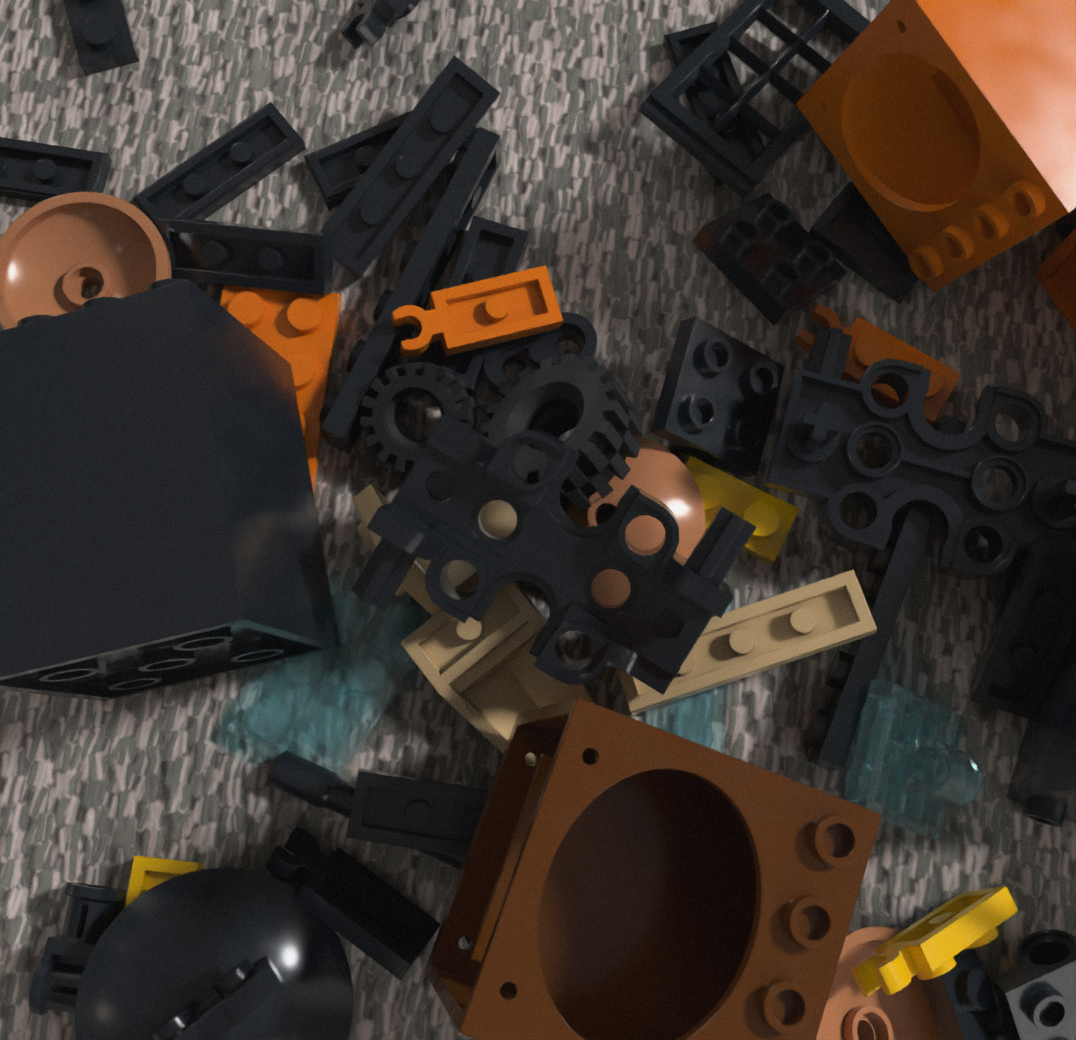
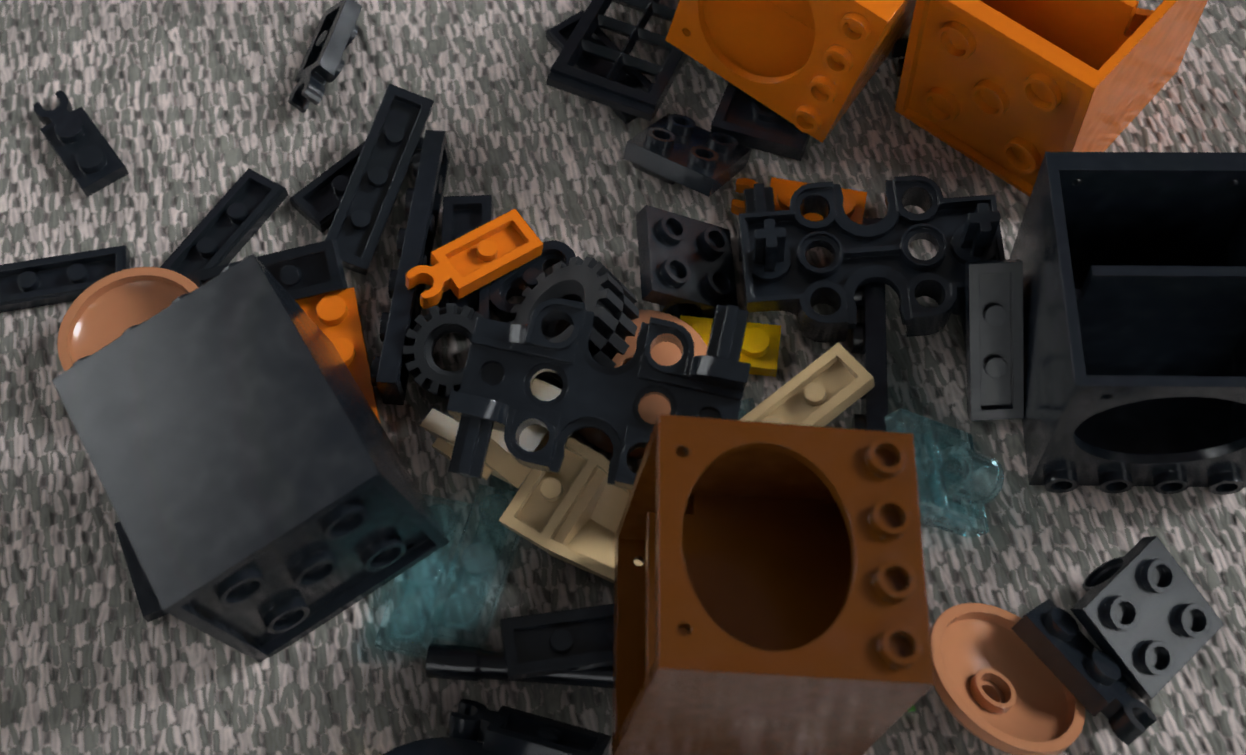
camera: 15 degrees left, 15 degrees down
(934, 940) = (1012, 597): yellow plate -> none

